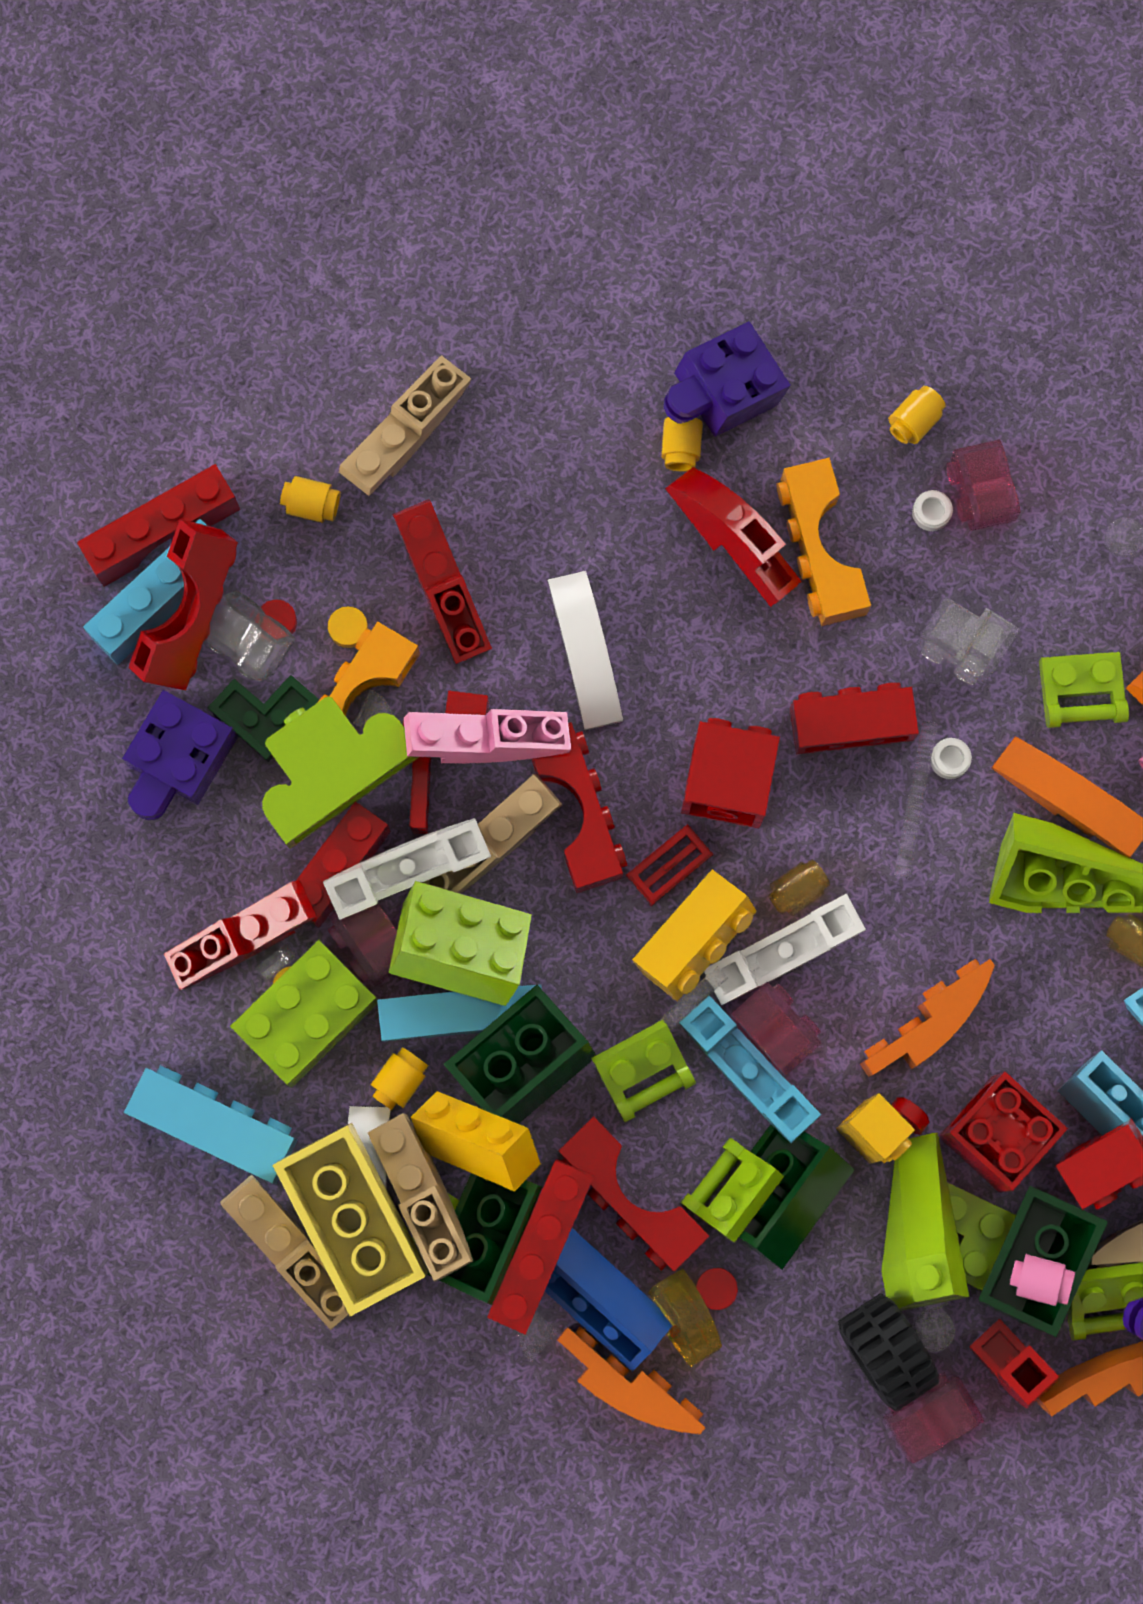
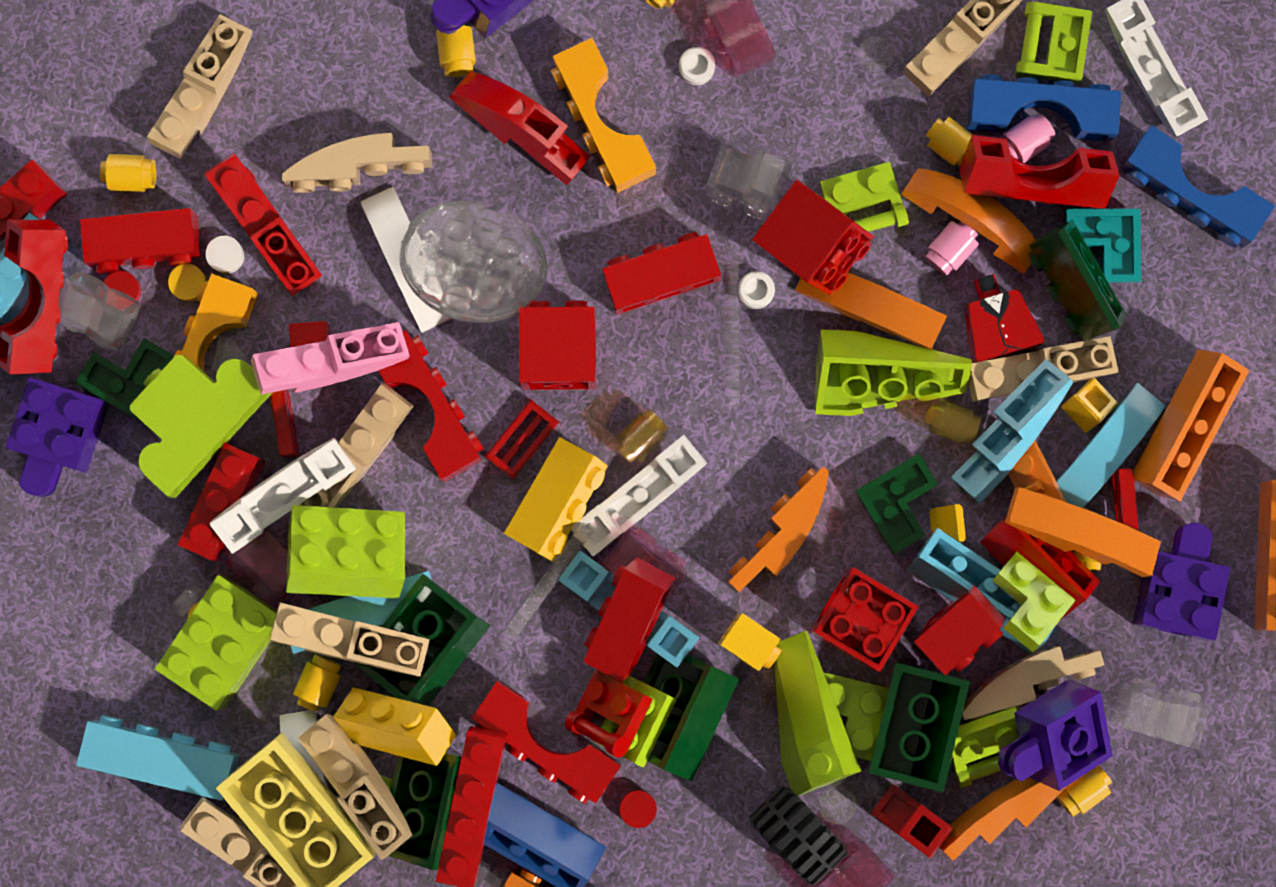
camera: 10 degrees left, 5 degrees up
(240, 936) = (147, 585): slope -> none
(308, 571) = (140, 239): none -> red brick
(393, 605) = (225, 254): none -> white tile
(446, 1037) = (349, 640): none -> tan slope
(536, 534) = (341, 163): none -> tan slope
(636, 1061) = (529, 620): lime plate -> none
(657, 665) = (472, 262): none -> clear brick
(693, 1326) = (615, 836): clear yellow slope -> none
(714, 1165) = (614, 702): none -> red plate
(748, 1078) = (627, 618): none -> red brick
(912, 1114) = (778, 620): red tile -> none
(1027, 713) = (813, 238): none -> red brick
(1042, 1280) = (920, 746): bright pink brick -> none
(1050, 1014) = (887, 501): none -> dark green plate
(1115, 1044) = (949, 520): none -> yellow slope

